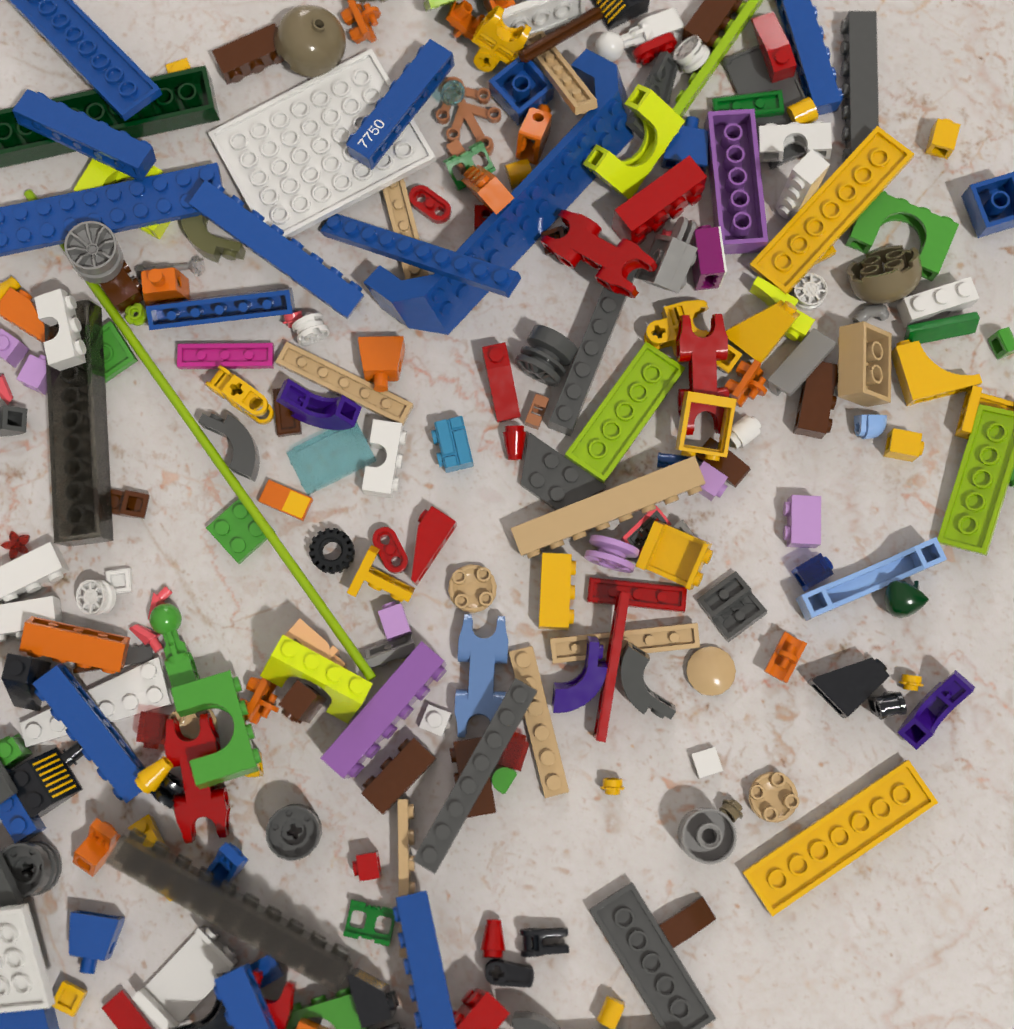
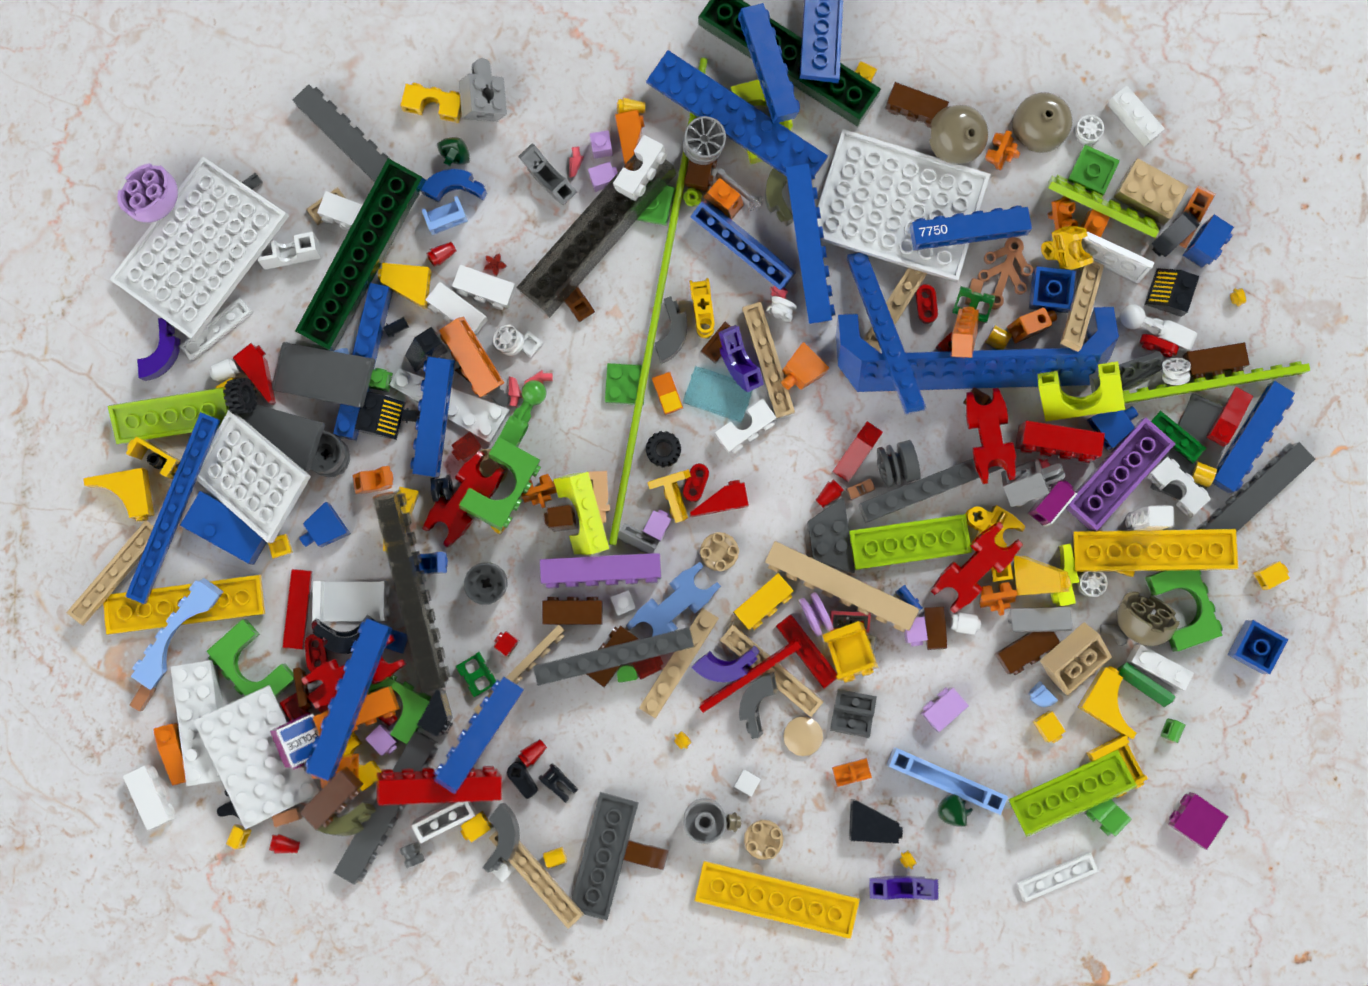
camera: 45 degrees right, 5 degrees up
(153, 775) = (442, 474): yellow cone -> none
(225, 354) = (718, 274): dark pink plate -> none
(450, 96) = (1006, 248): clear light blue wheel -> none
(453, 444) = (793, 459): dark azure brick -> none
(560, 35) = (1109, 281): reddish brown axle -> none
(729, 409) = (932, 617): yellow window -> none
(813, 571) = (919, 742): clear blue brick -> none
(887, 704) = (879, 857): black piece -> none

